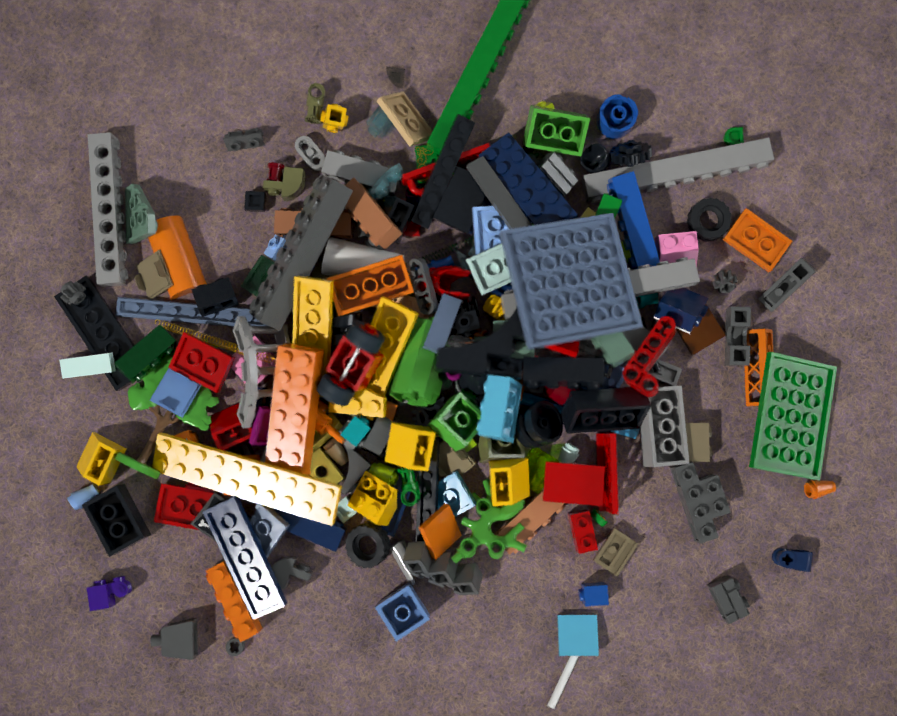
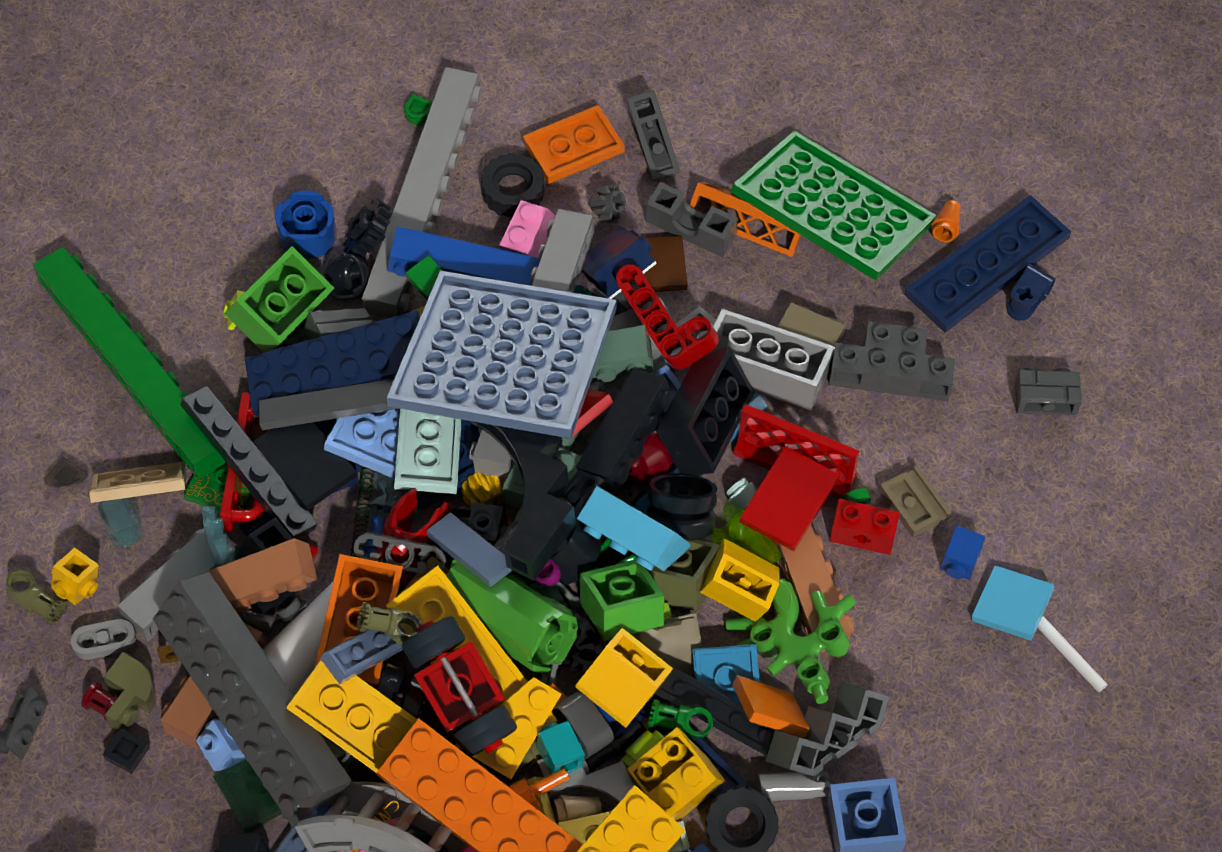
camera: 65 degrees left, 25 degrees down
(347, 301) = (360, 654): none -> sand blue tile
(367, 305) = (387, 621): none -> olive connector
(802, 525) = (987, 263): none -> dark blue plate

